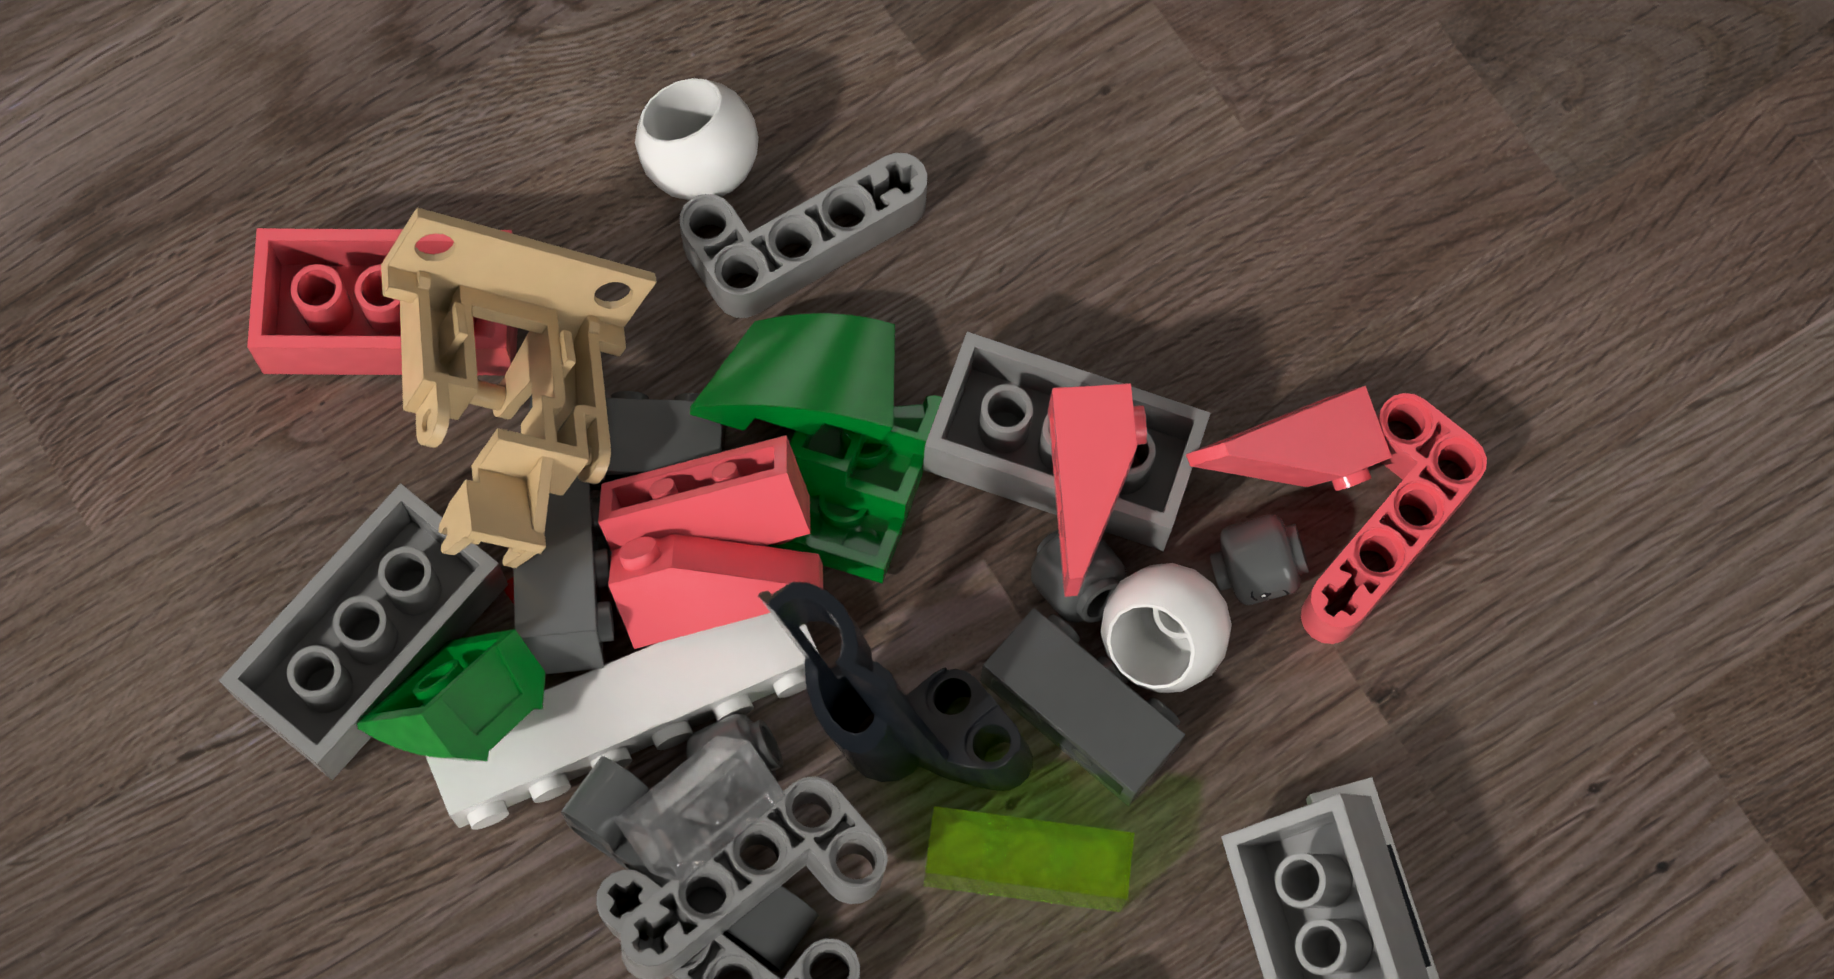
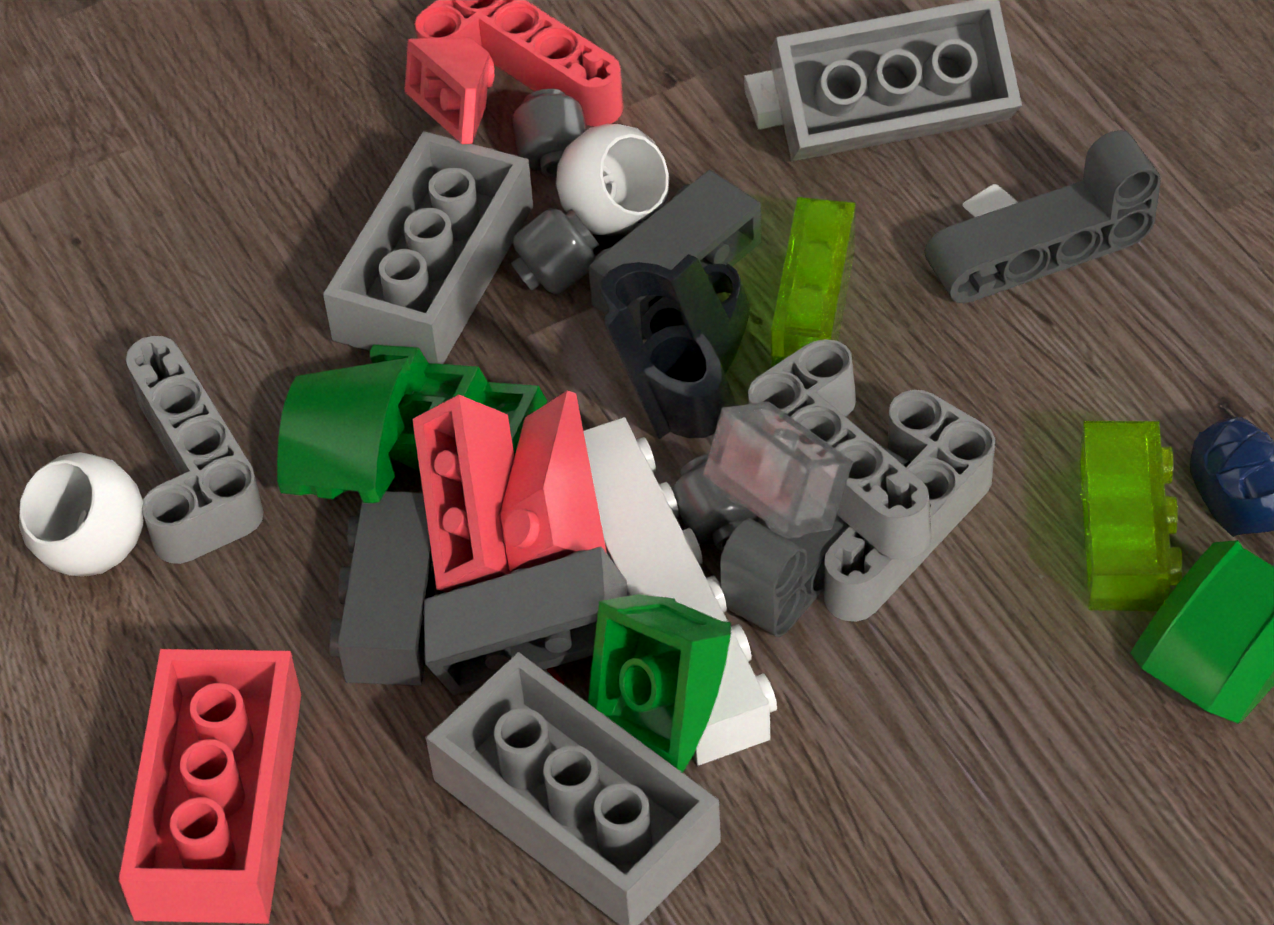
camera: 80 degrees left, 20 degrees down
(559, 364) = (307, 629): tan container -> none
(1092, 452) = (478, 192): coral slope -> none

